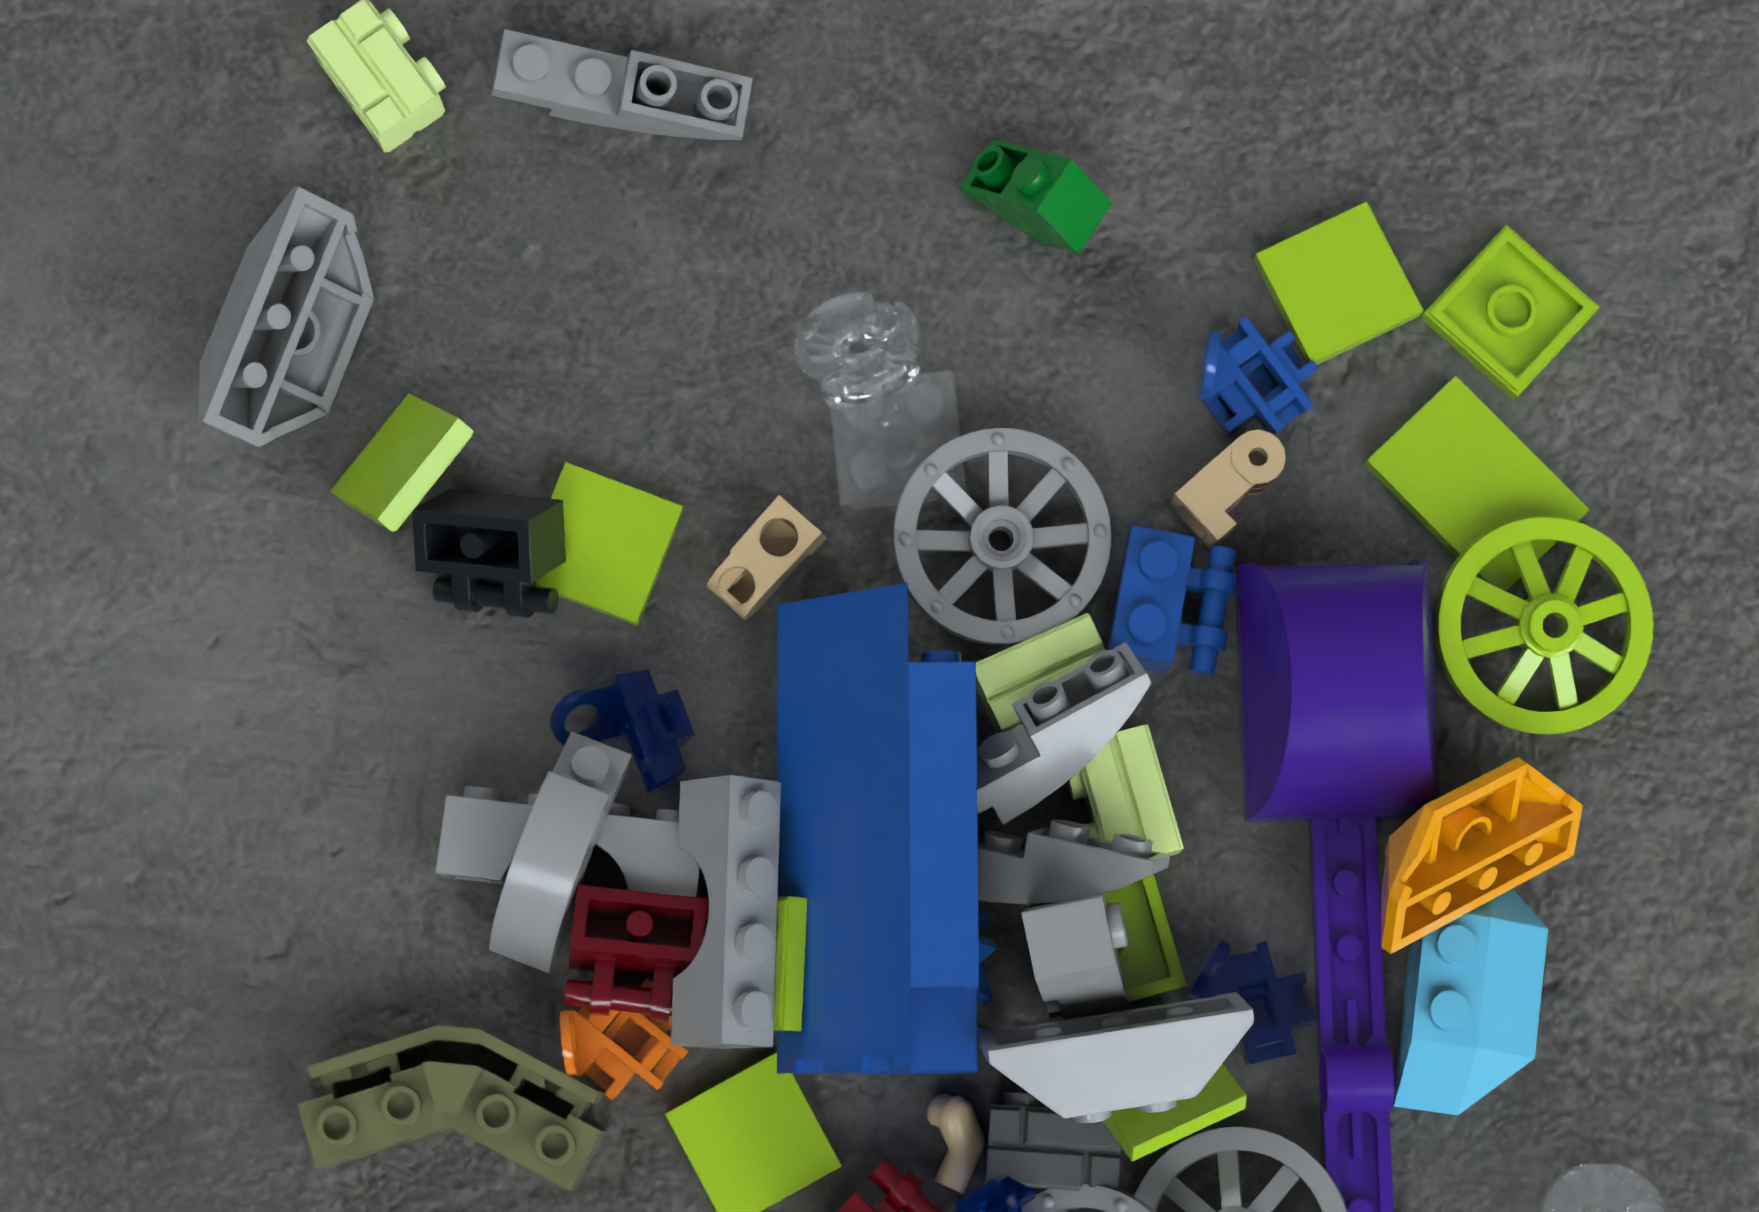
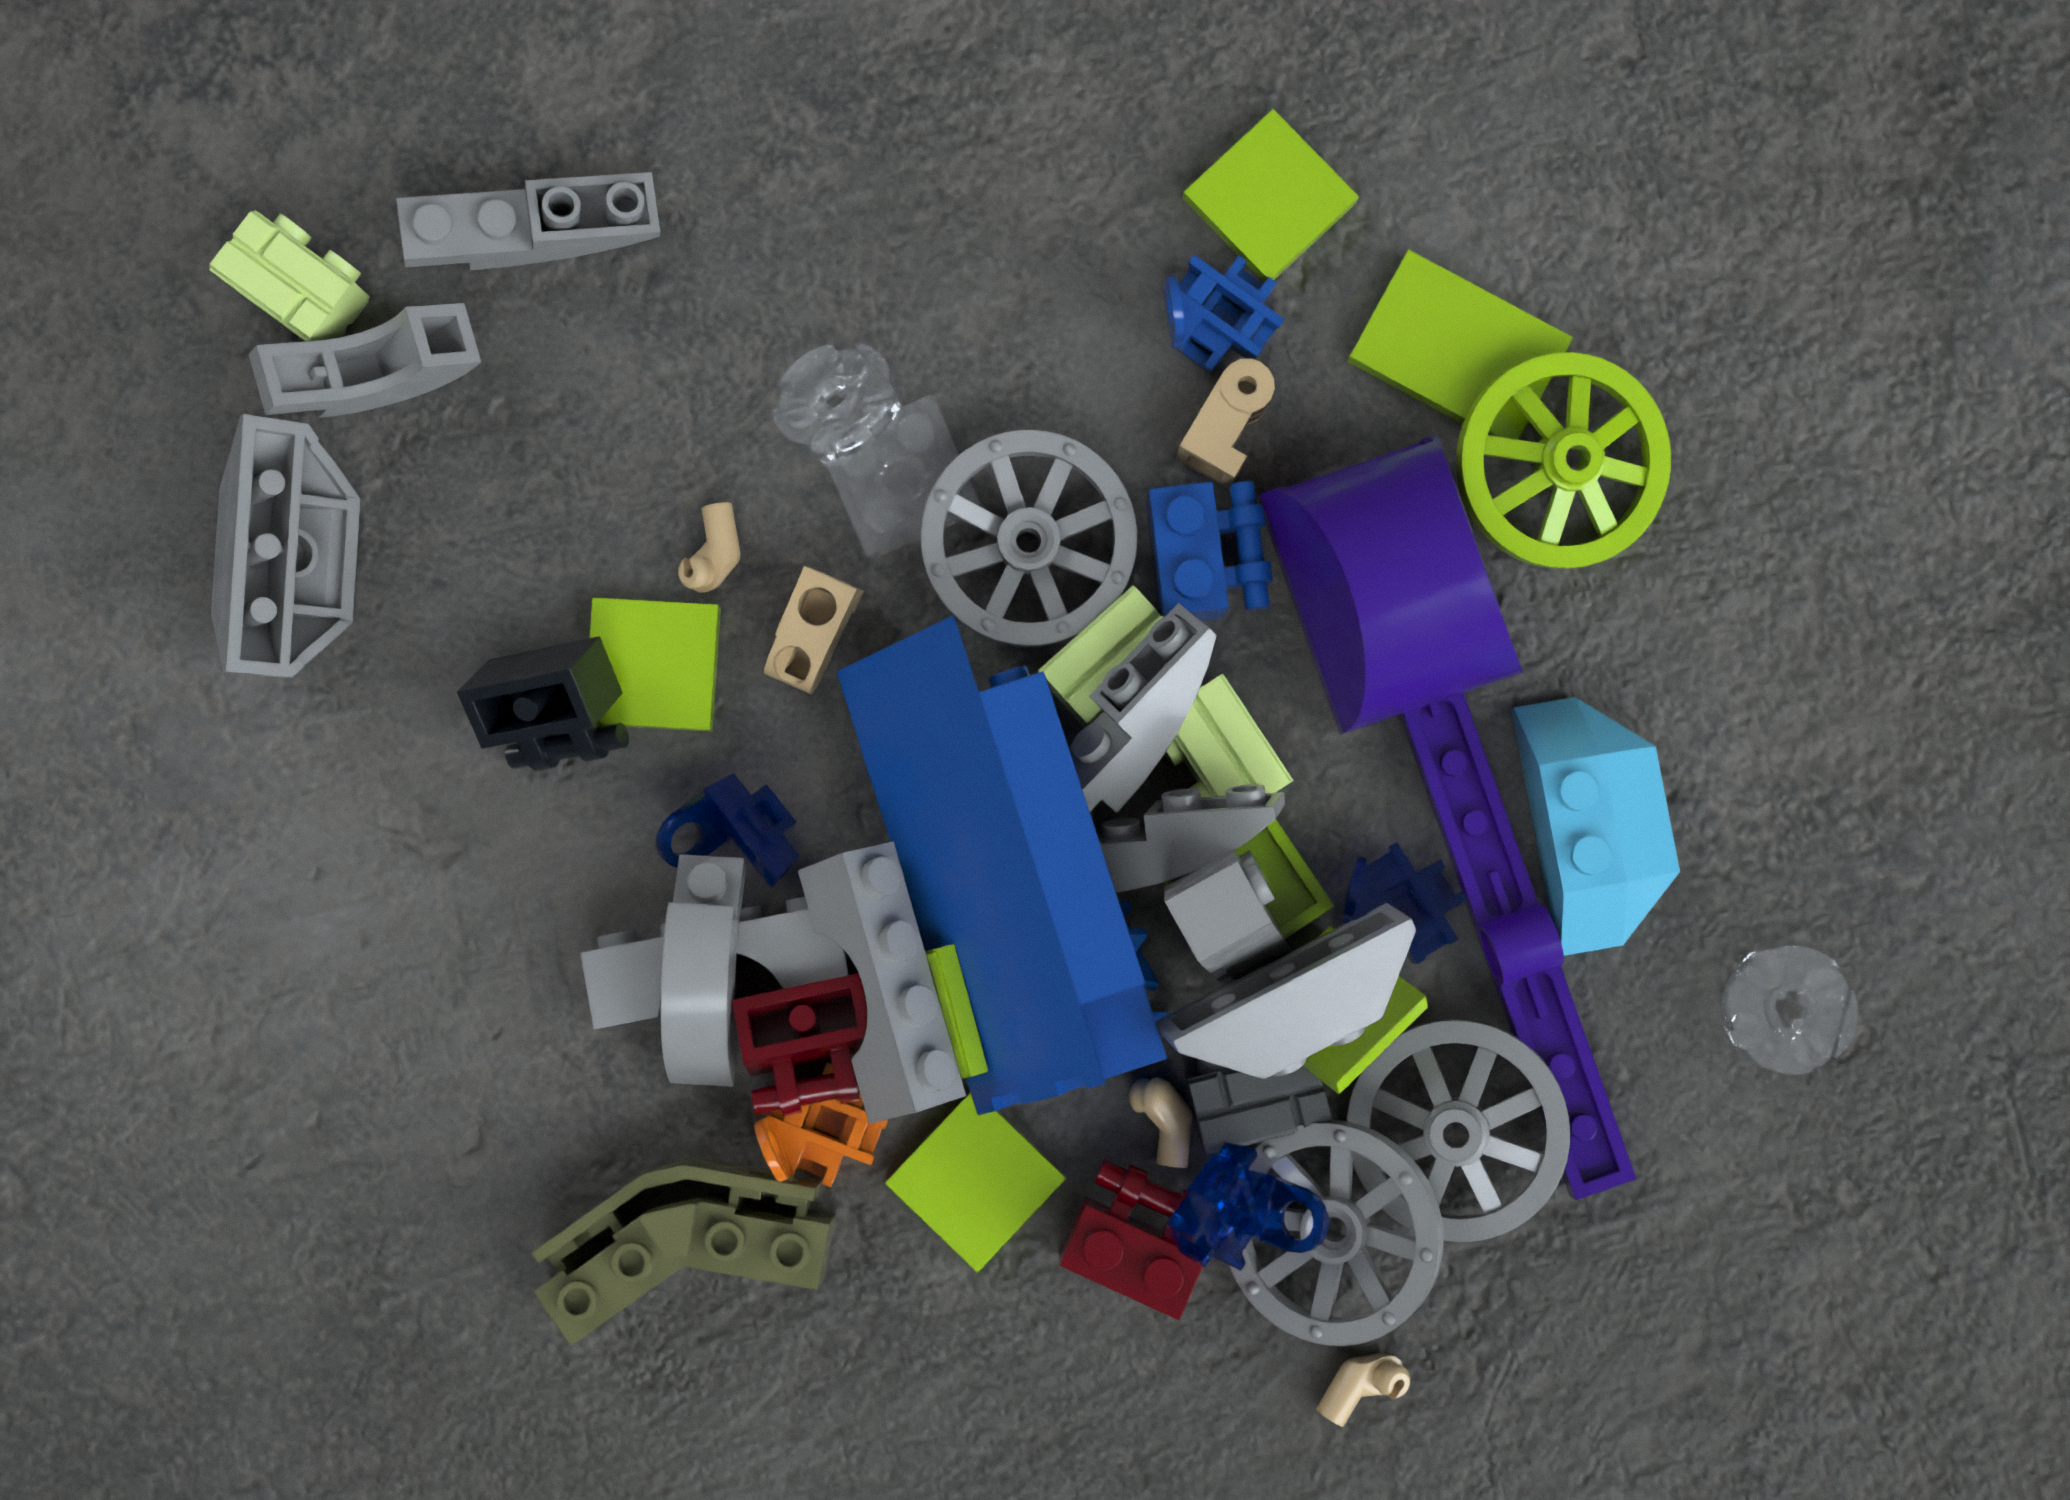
camera: 15 degrees left, 5 degrees up
(402, 462) = (435, 648): lime tile -> none
(427, 179) = (367, 369): none -> light grey arch
(698, 459) = (717, 555): none -> tan arm
(1037, 194) = (959, 199): green slope -> none
(1473, 849) = (1565, 698): light orange wedge -> none
(1509, 312) = (1440, 173): lime tile -> none

